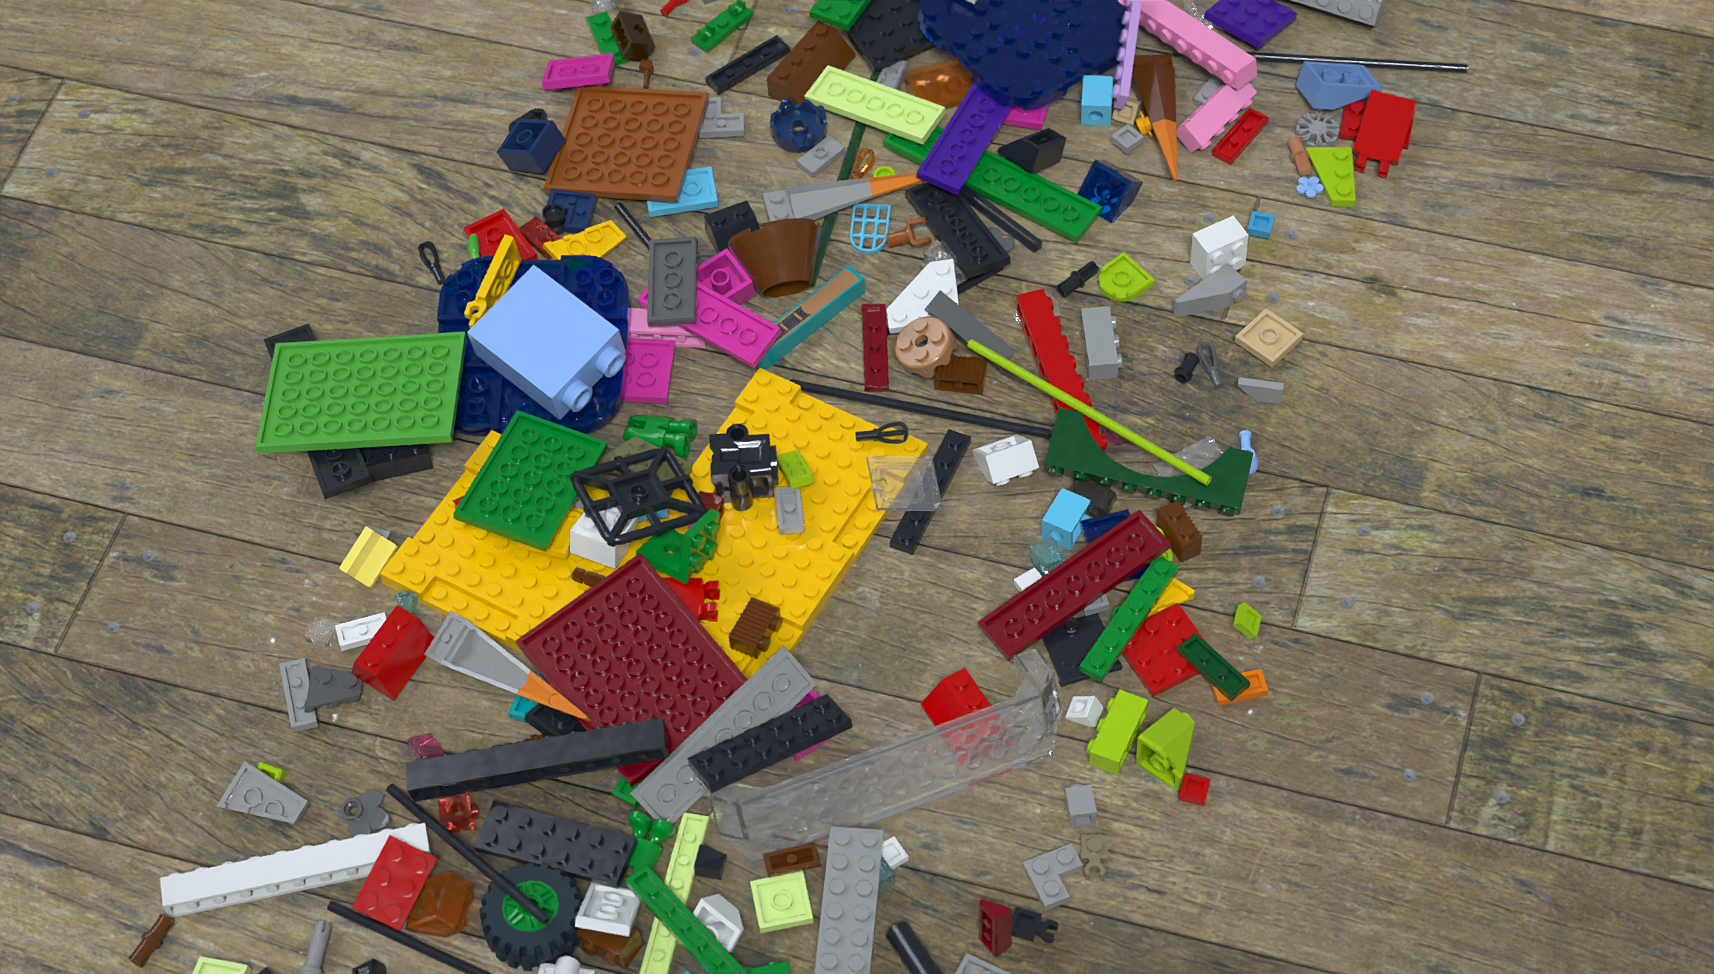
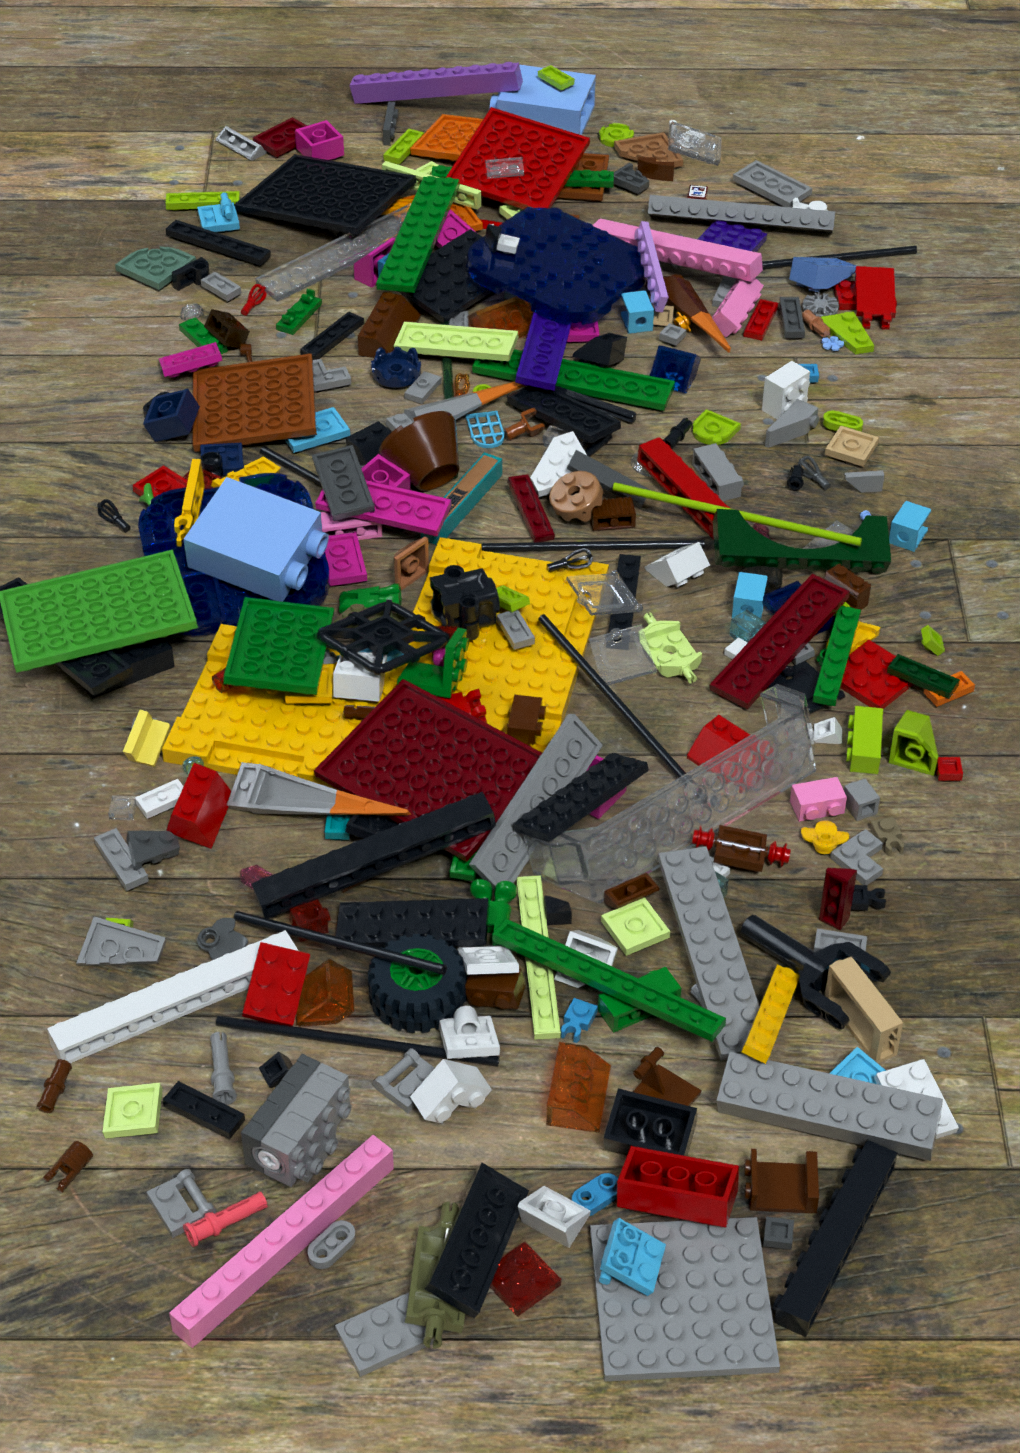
camera: 20 degrees left, 10 degrees down
(714, 395) = (411, 562): none -> nougat slope
(864, 619) = (611, 696): none -> black piece
(897, 569) = (624, 658): none -> clear container
(926, 835) = (741, 848): none -> reddish brown plate
(953, 549) = (667, 637): none -> yellowish green plate
(1025, 841) = (824, 836): none -> yellow plate
(1034, 794) = (818, 799): none -> bright pink brick
(1273, 301) = (835, 419): none -> lime plate
(1275, 141) = (792, 317): none -> dark grey plate
(1285, 463) = (907, 526): none -> medium azure piece

